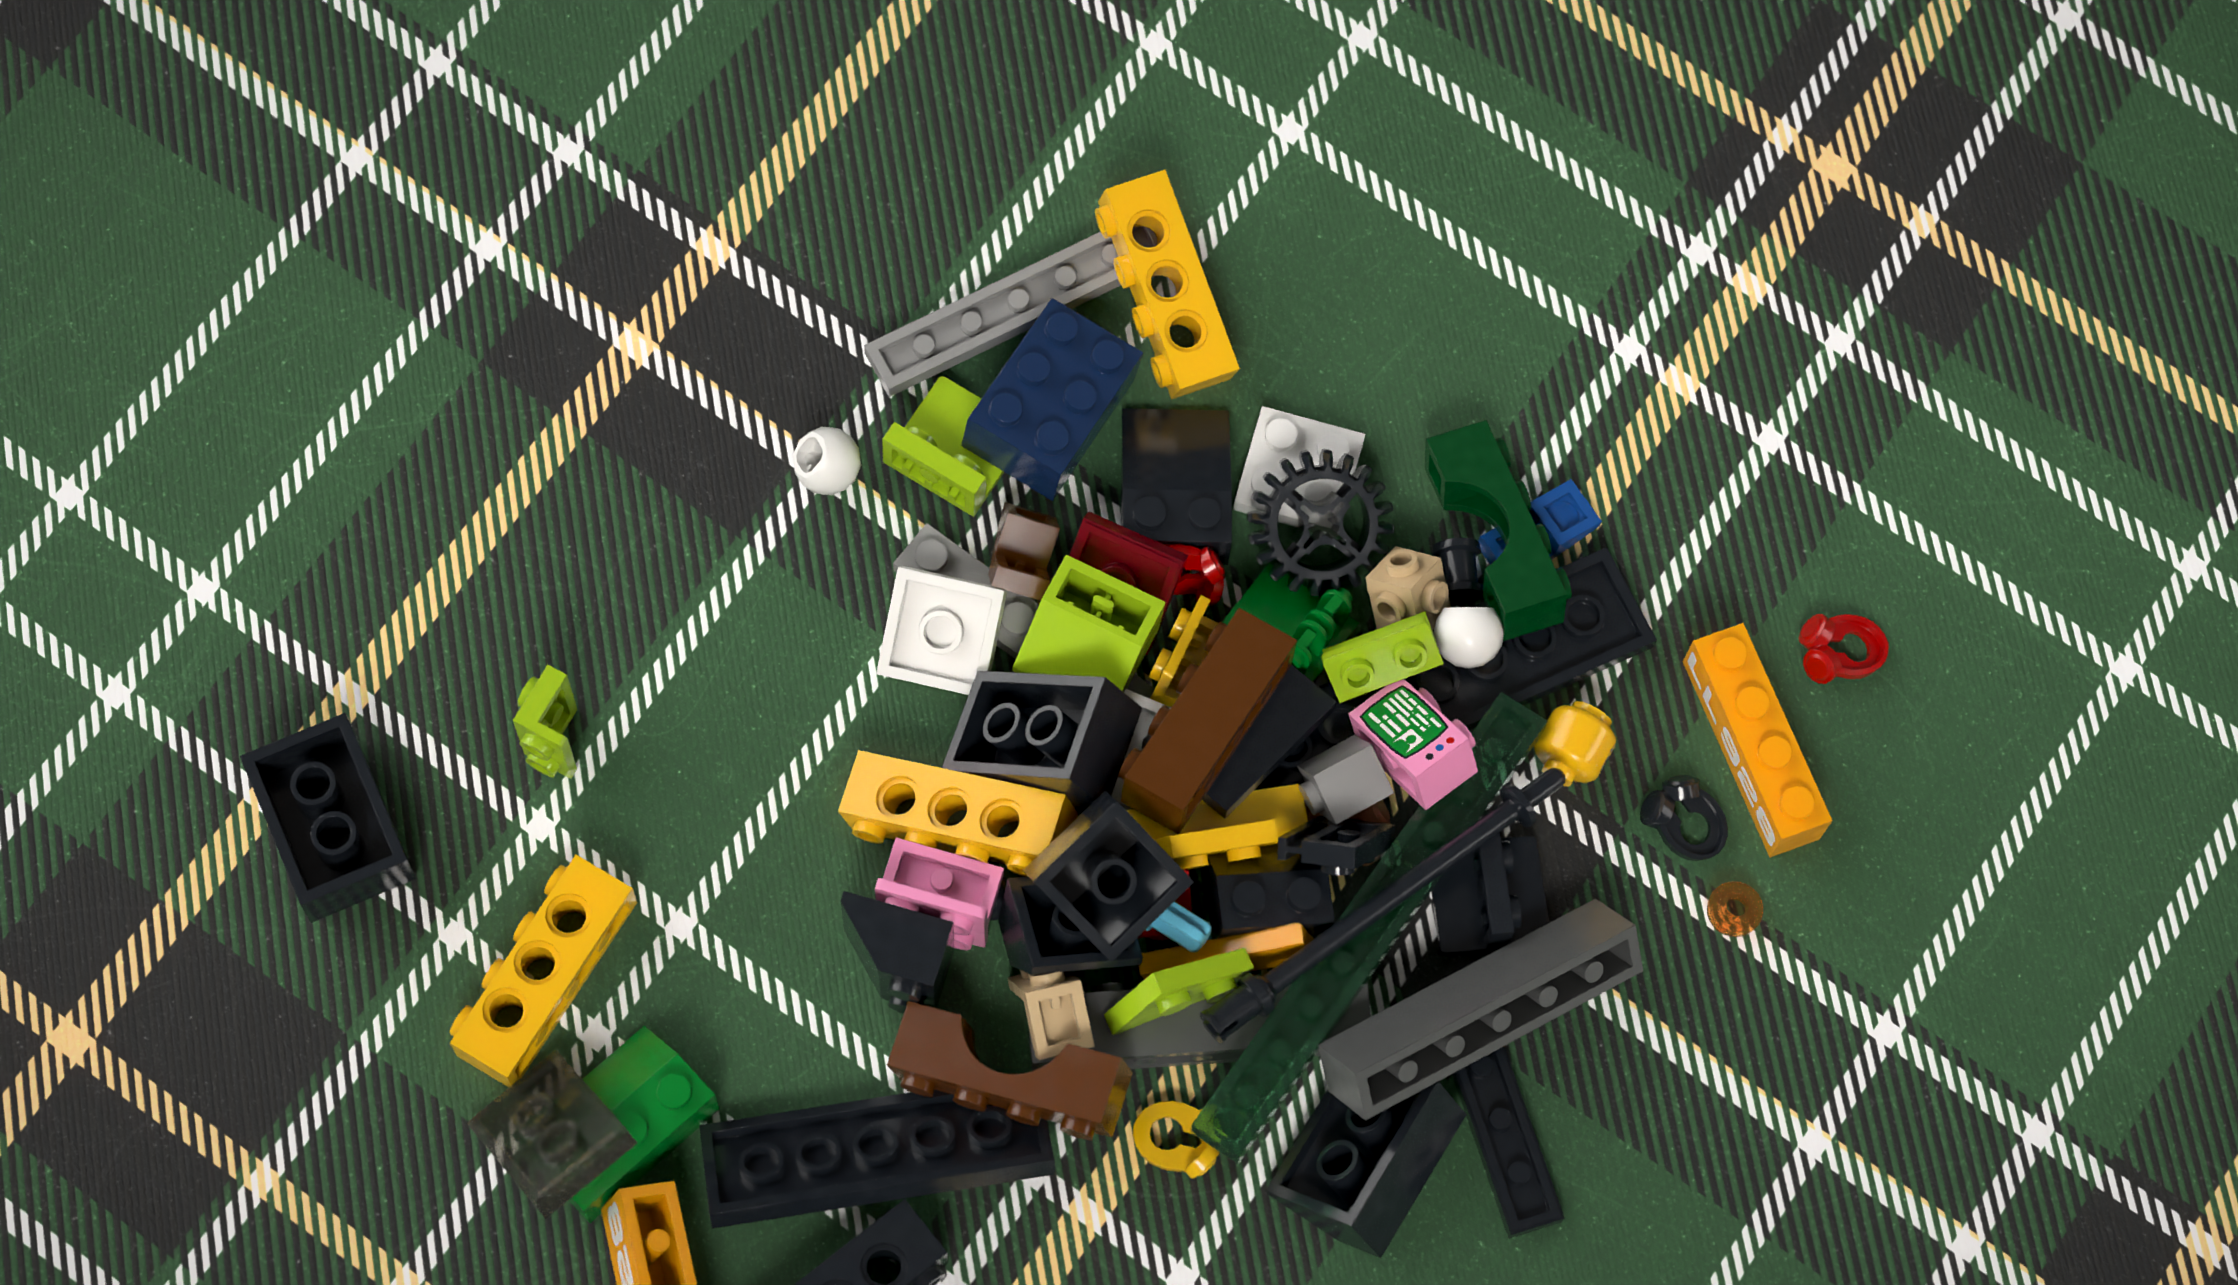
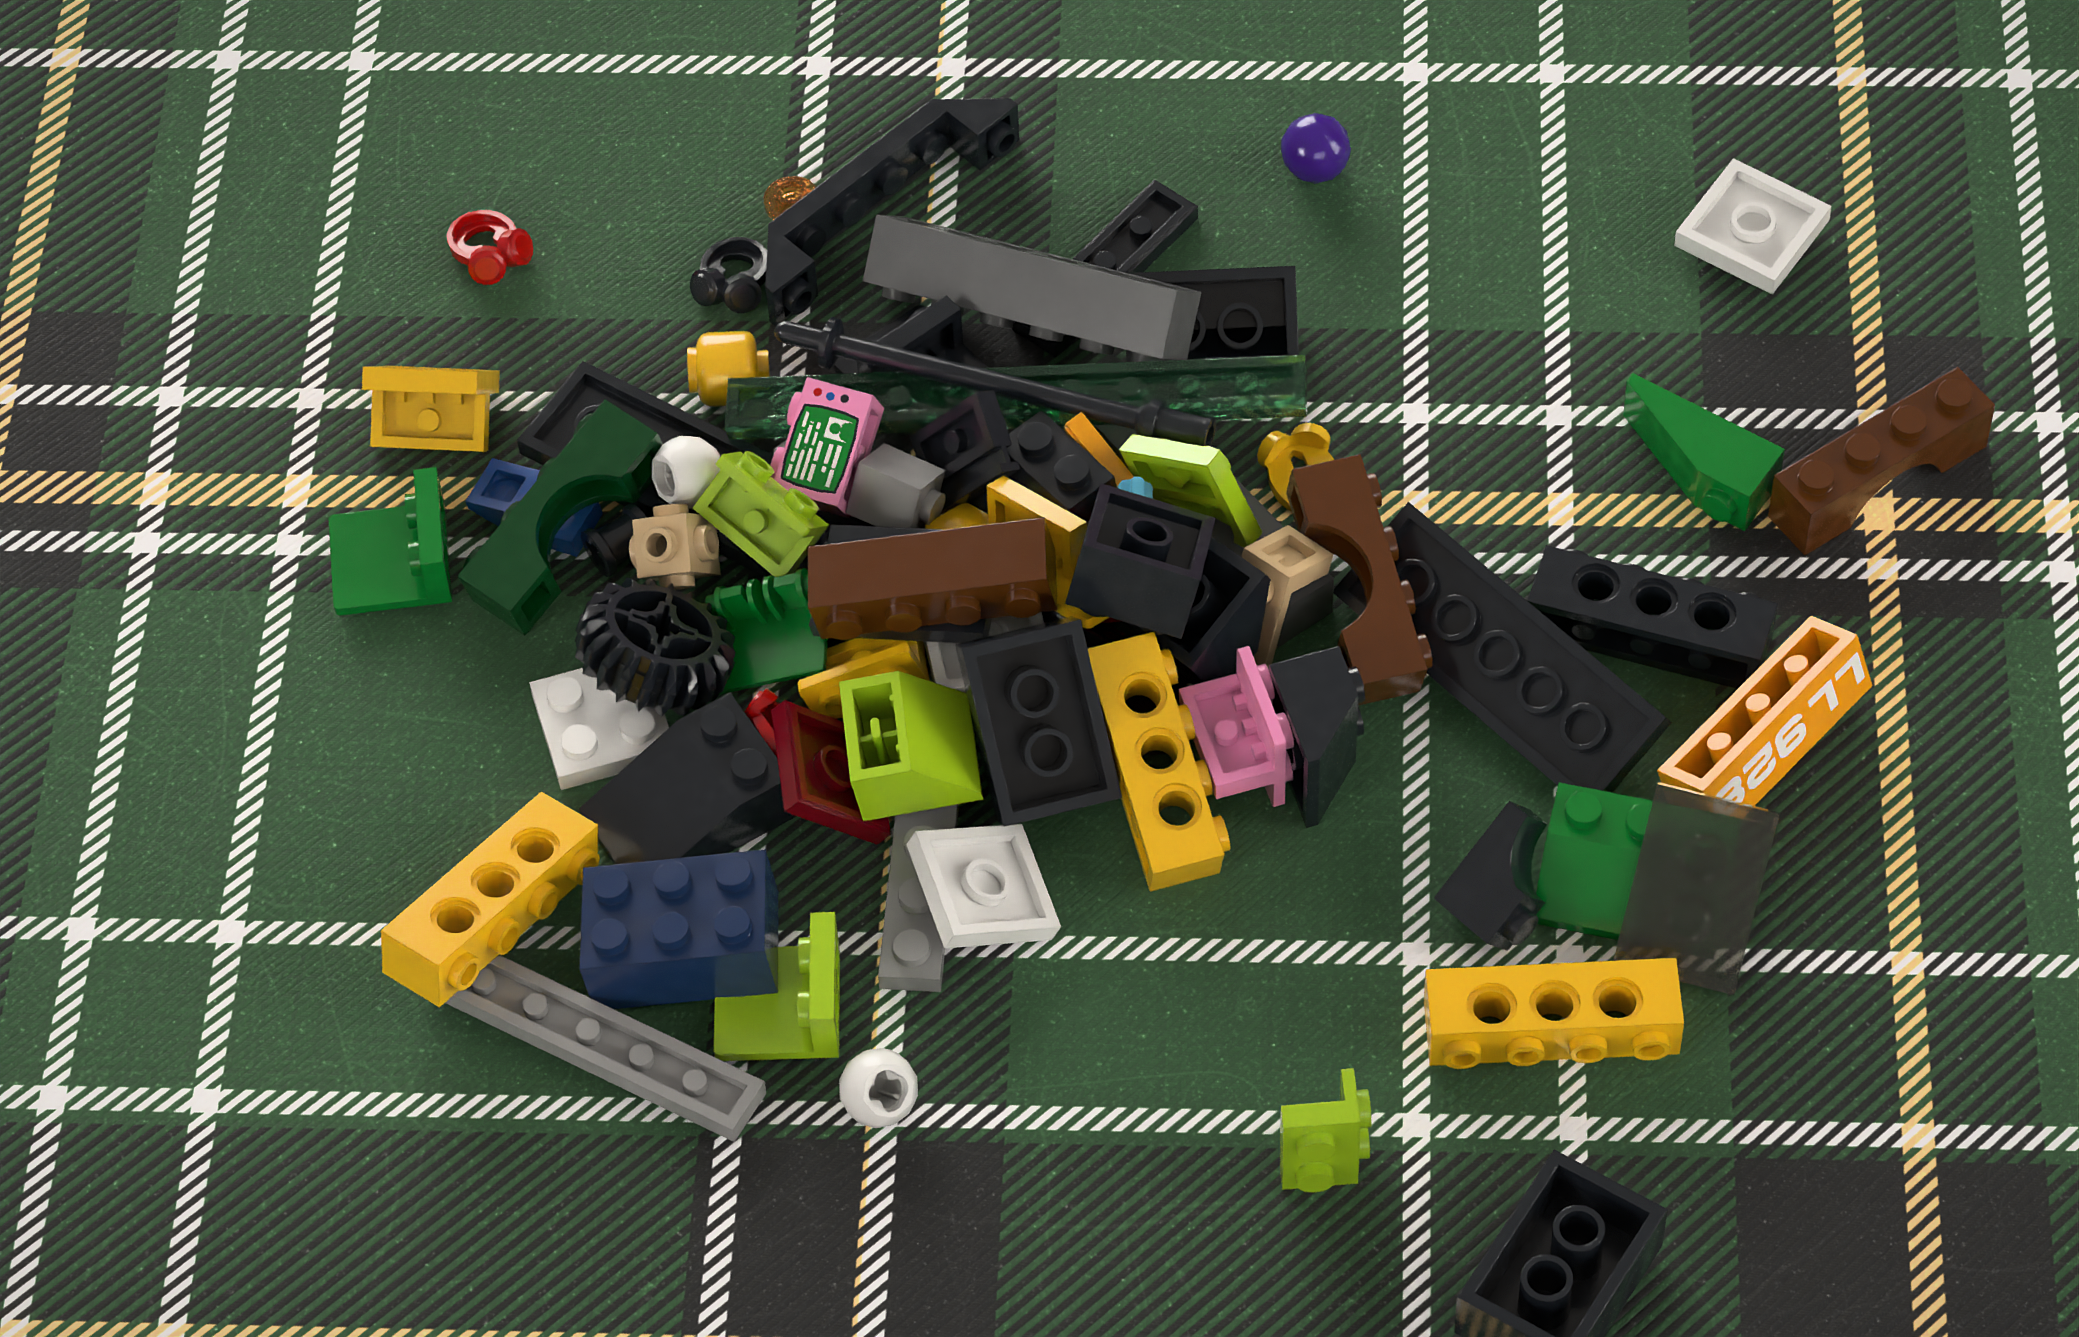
camera: 115 degrees left, 15 degrees down
(668, 996) = (1494, 881): none -> black arch
(1023, 551) = (853, 877): reddish brown slope -> none
(1557, 403) = (392, 553): none -> green bracket
(1650, 851) = (971, 127): none -> black slope
(1693, 507) = (430, 407): none -> yellow bracket
(1756, 740) = (626, 249): light orange brick -> none

